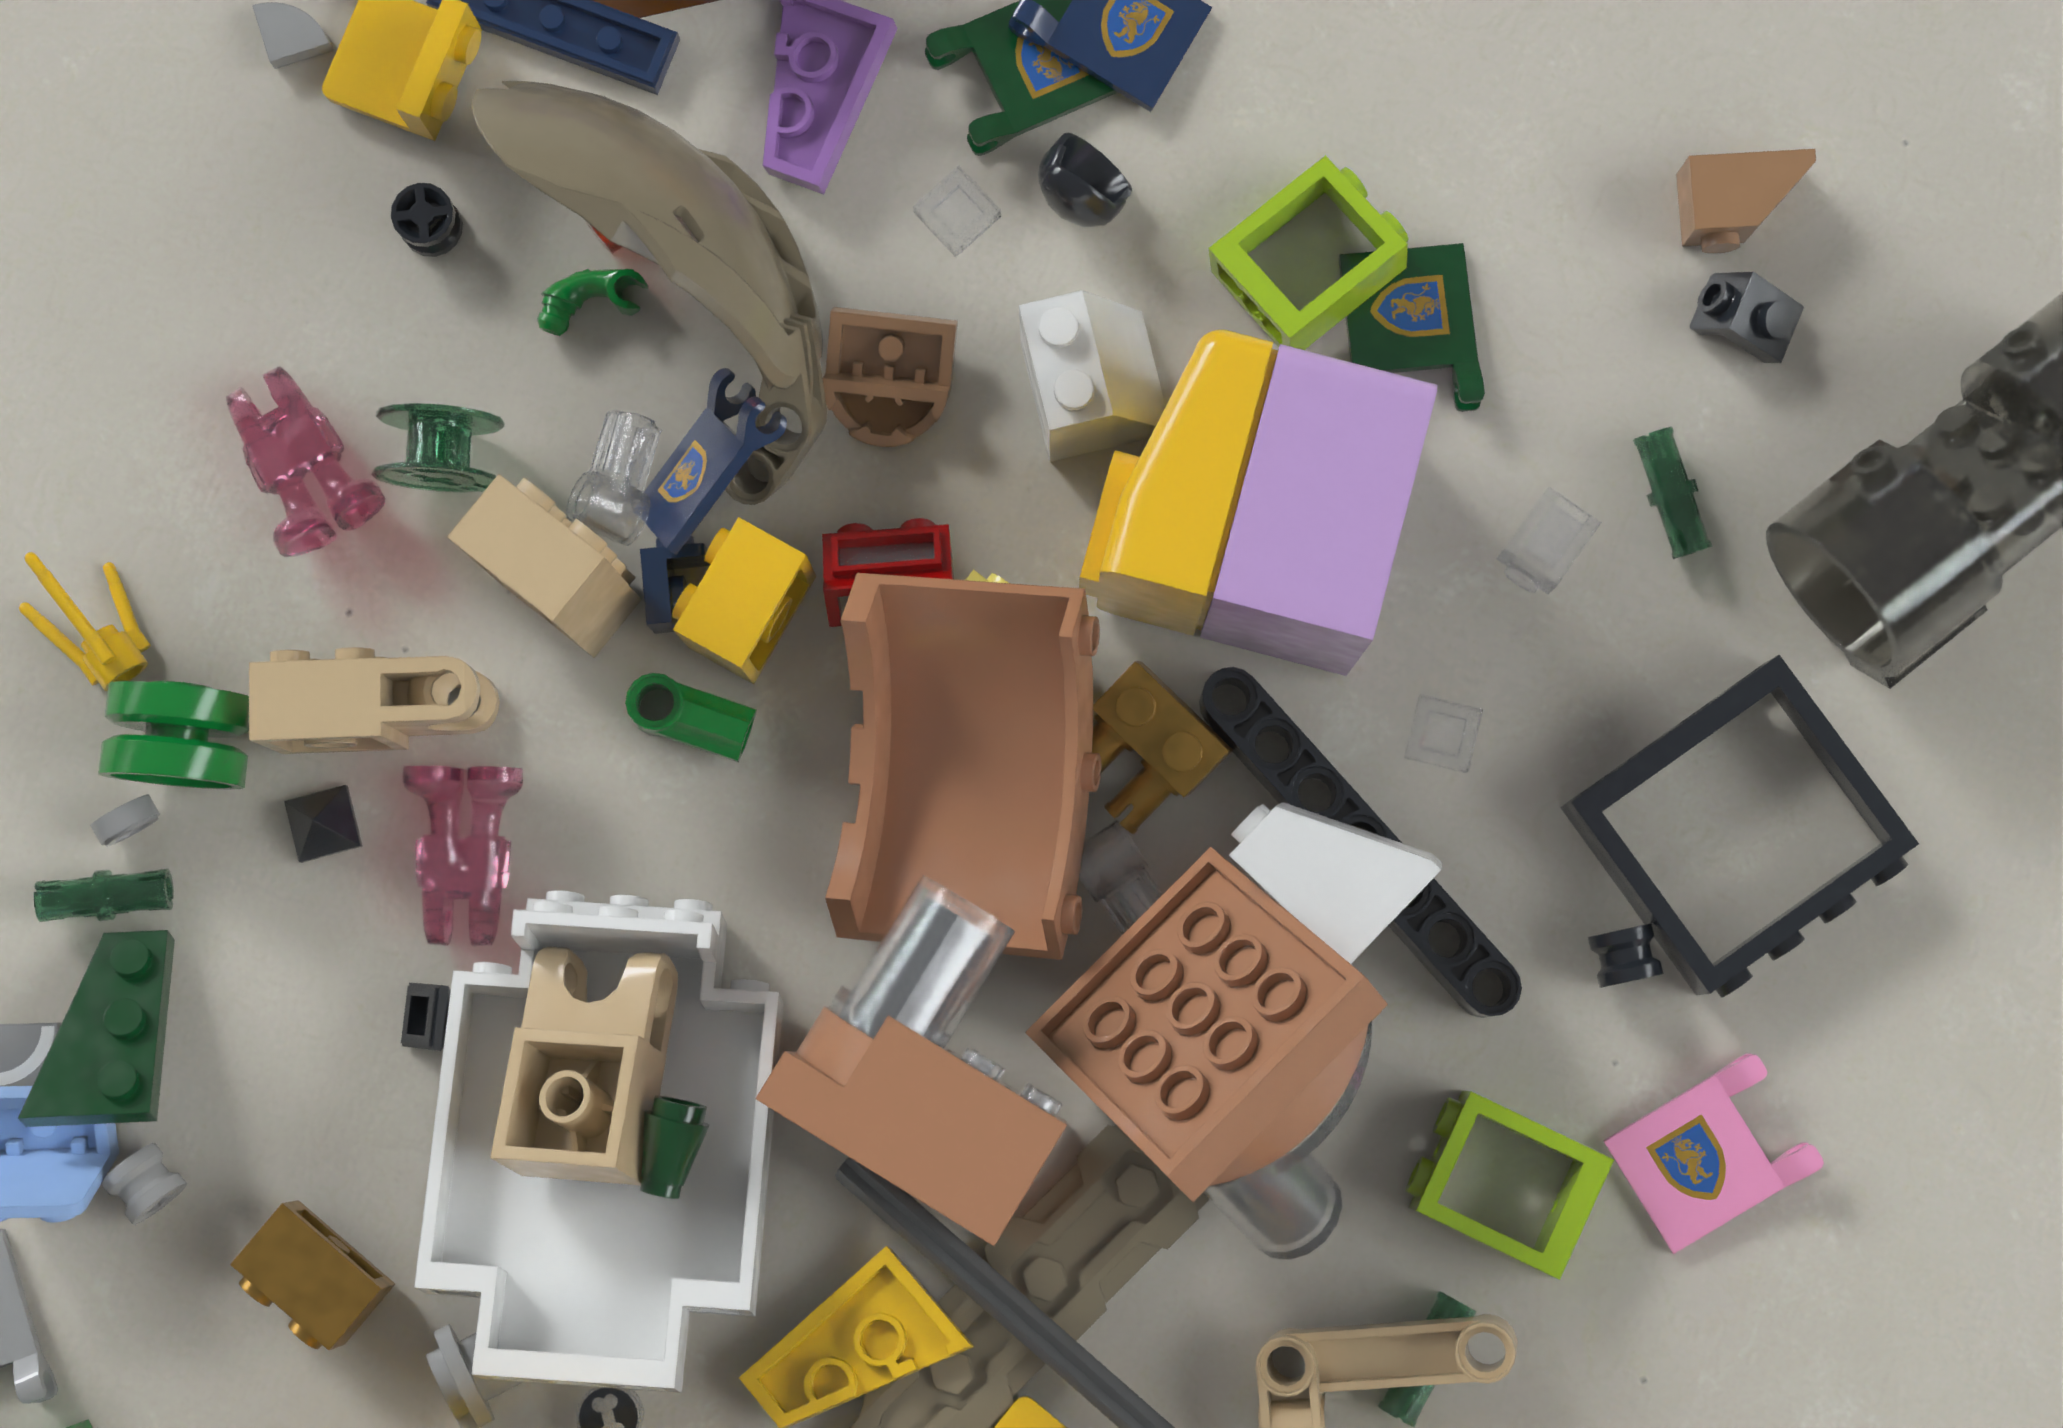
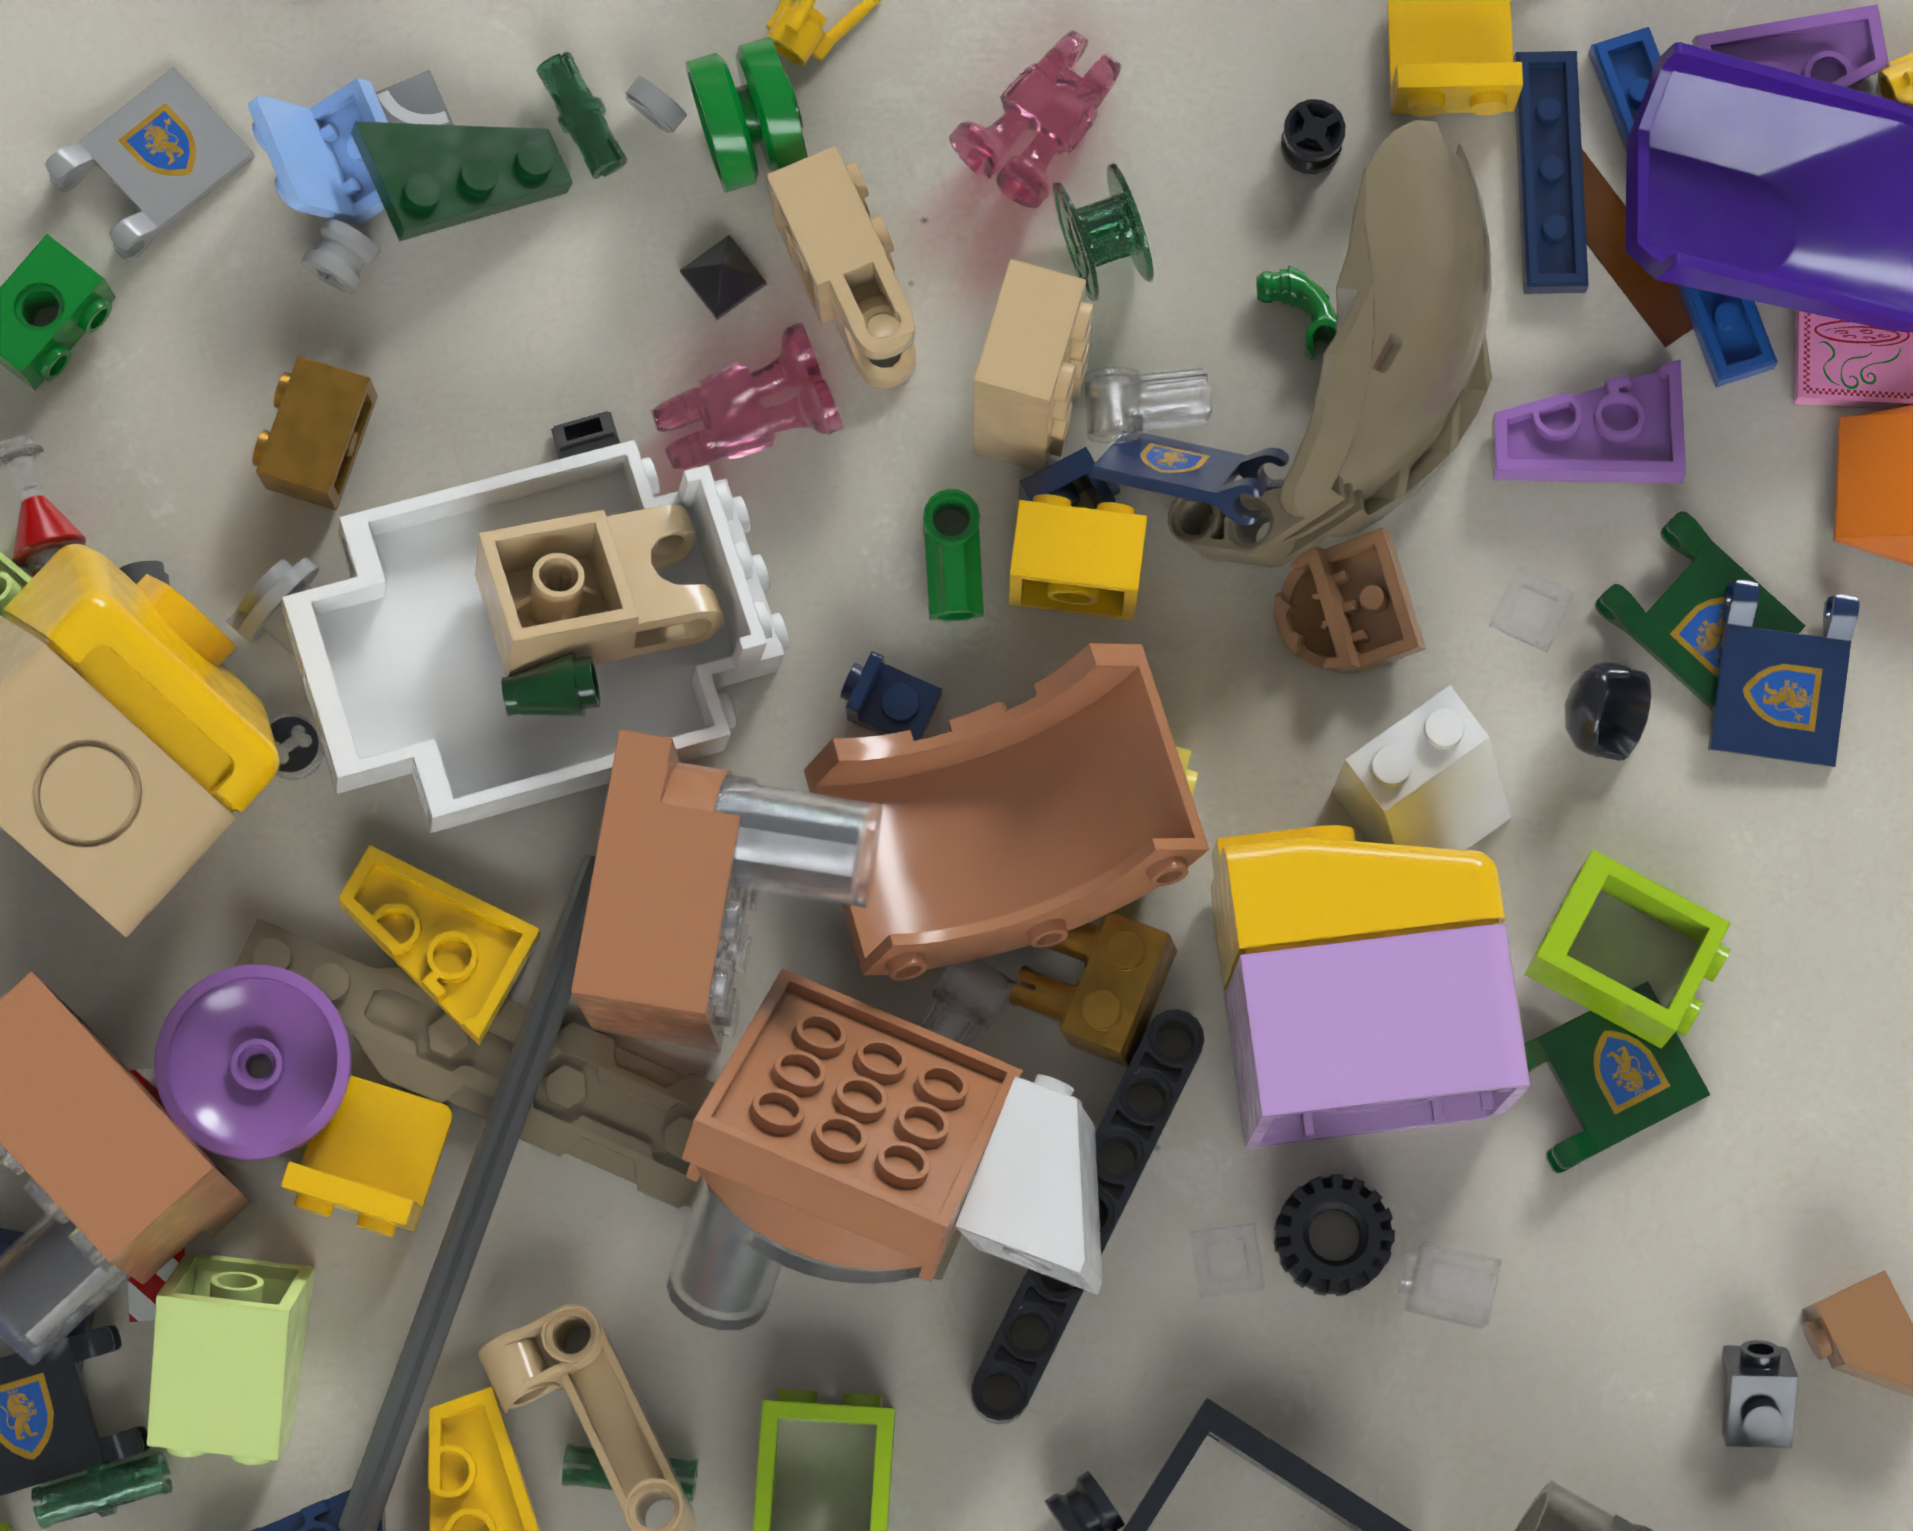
camera: 65 degrees right, 5 degrees down
(800, 830) = (888, 698): none -> dark blue bracket
(912, 550) = (1189, 696): red window -> none
(1481, 595) = (1372, 1223): none -> black tyre
(1672, 492) = (1551, 1388): clear green pin -> none

